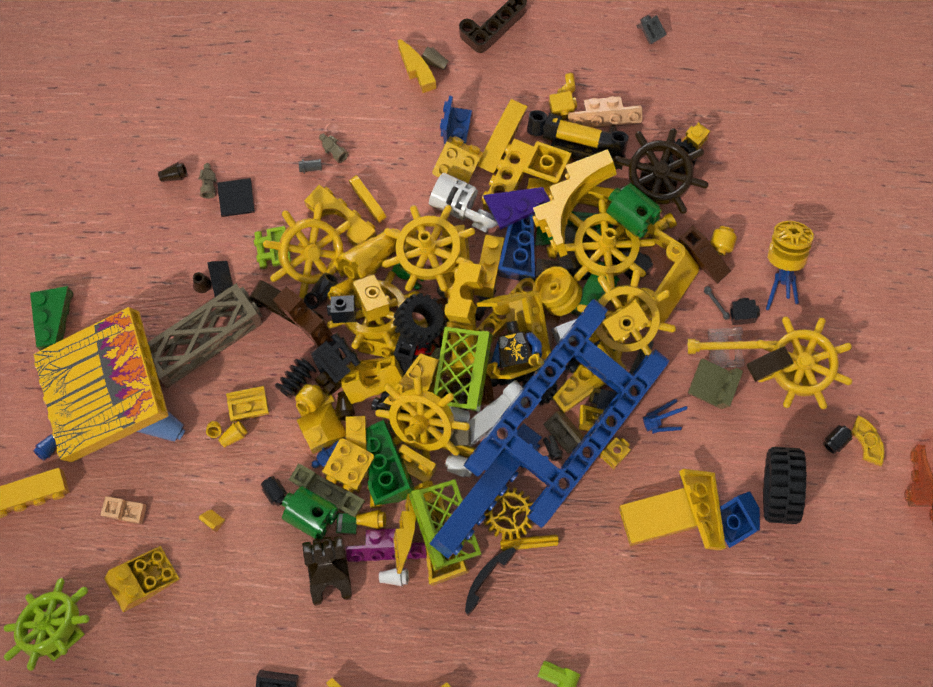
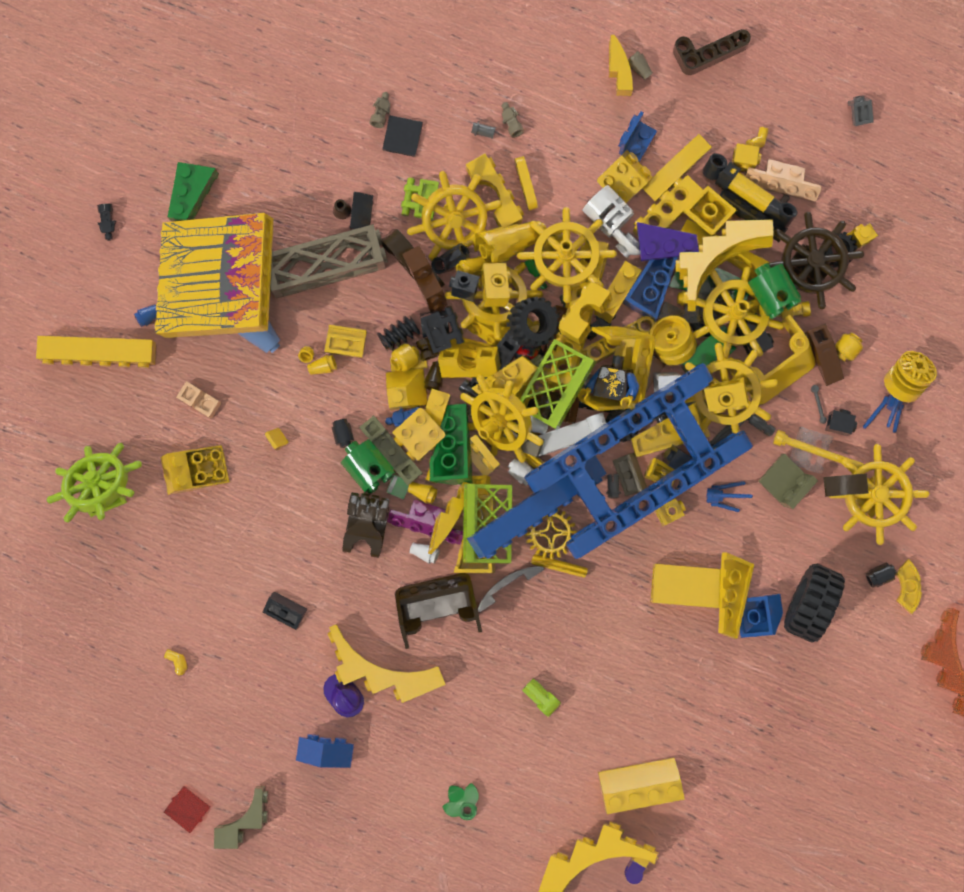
camera: 15 degrees right, 10 degrees up
(173, 173) = (351, 90): dark brown cone -> none
(421, 620) = (435, 600): none -> dark brown windscreen
(669, 340) = (761, 424): none -> dark grey axle

